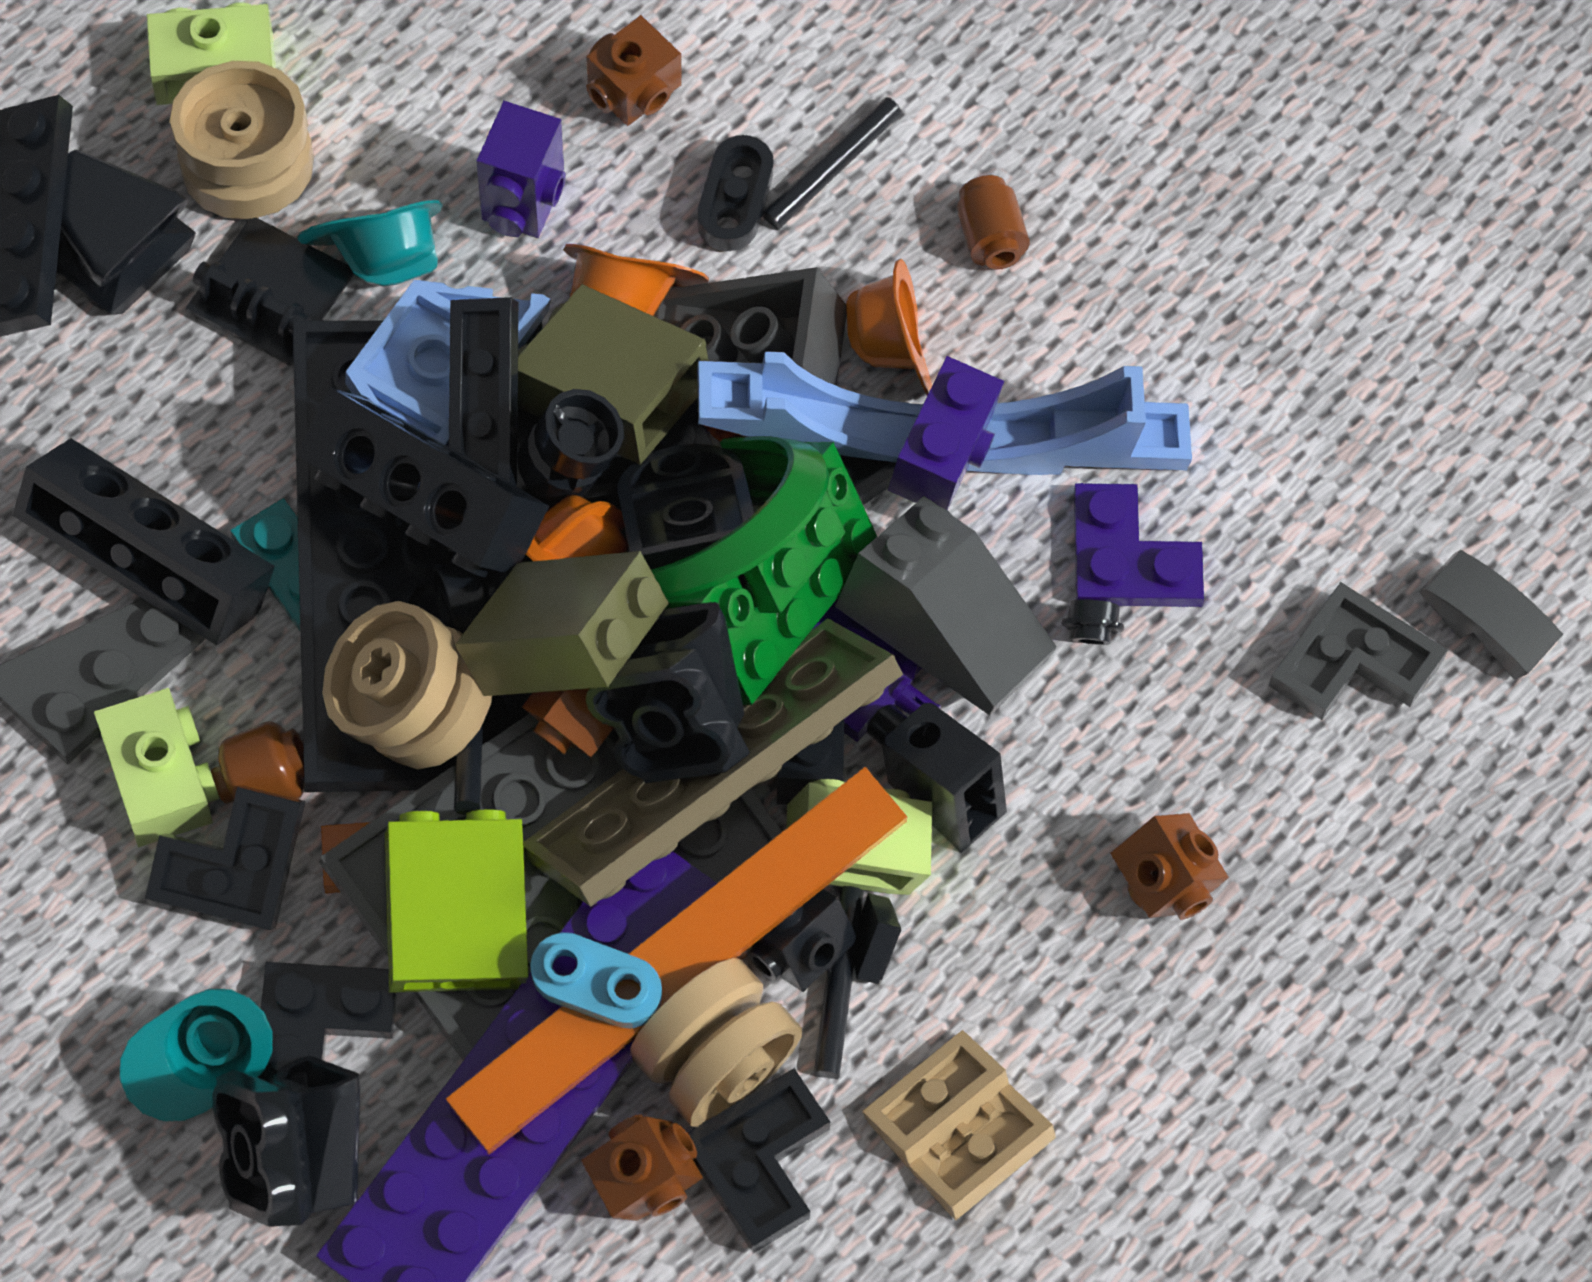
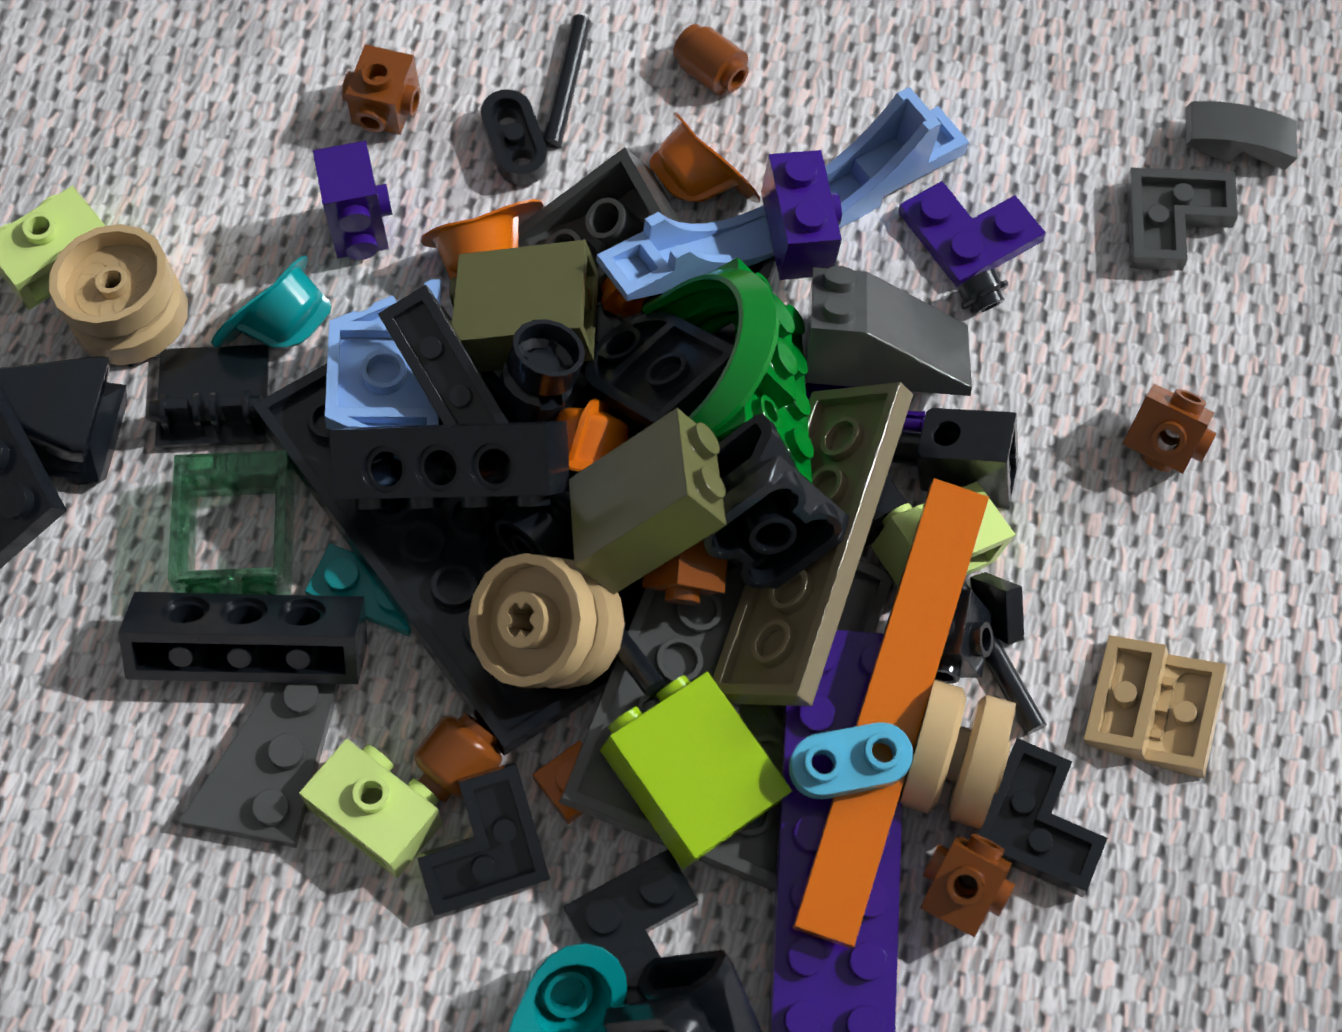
camera: 30 degrees left, 0 degrees up
(228, 375) = (227, 476): none -> clear green window

